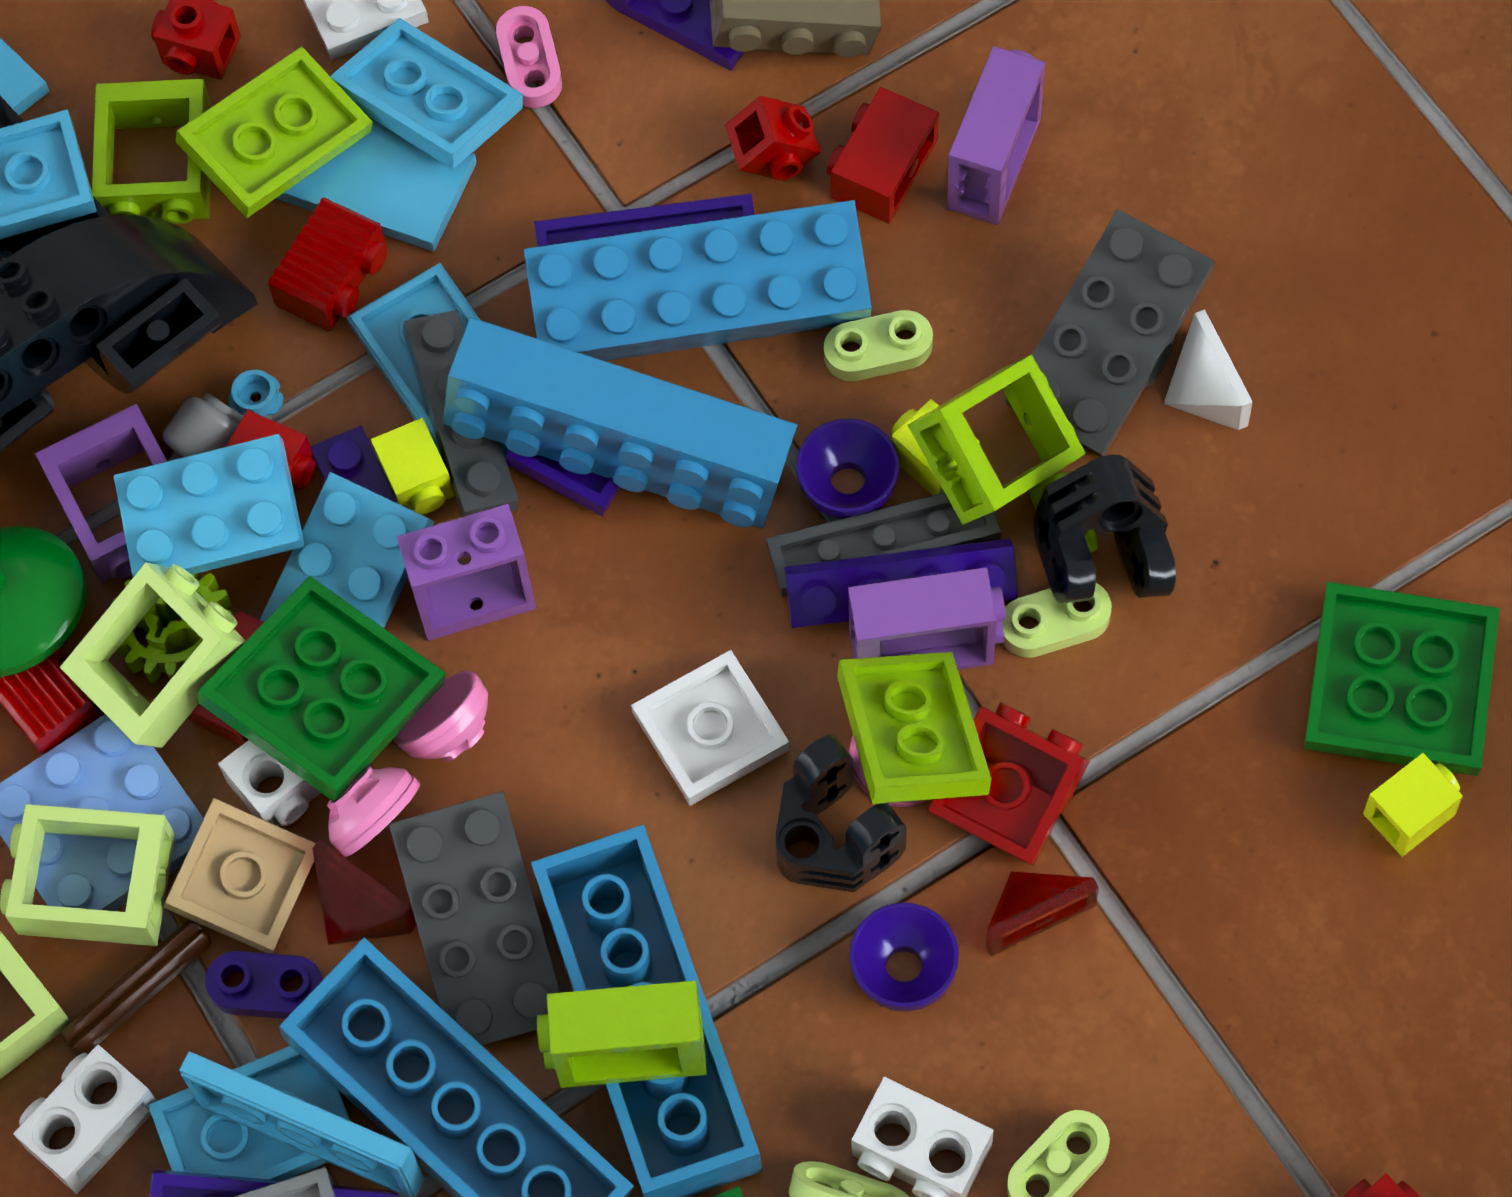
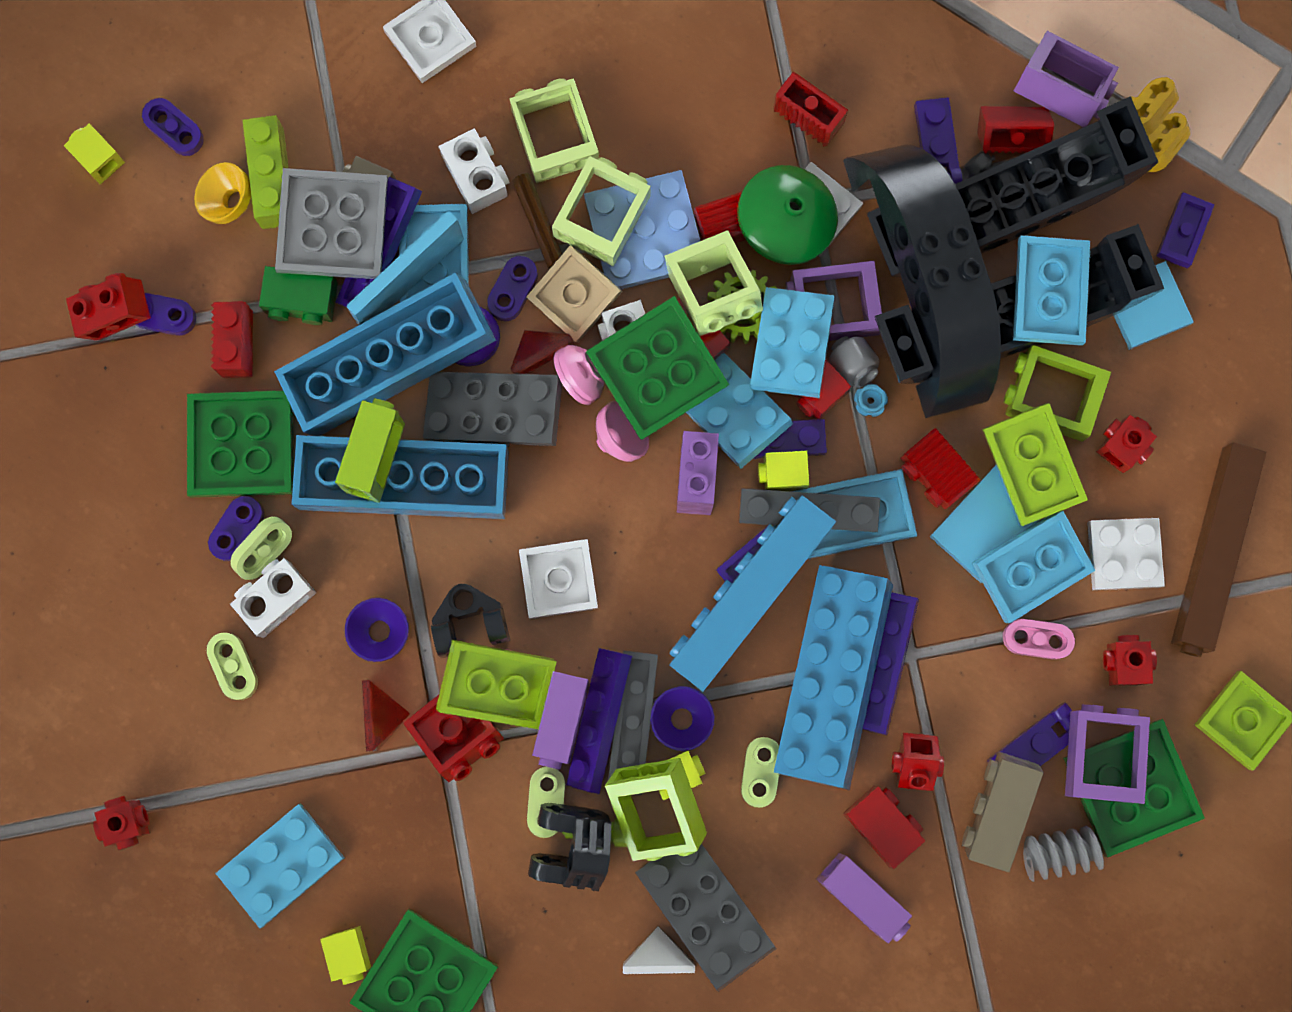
camera: 105 degrees right, 15 degrees up
(1330, 963) = (280, 865): none -> medium azure plate

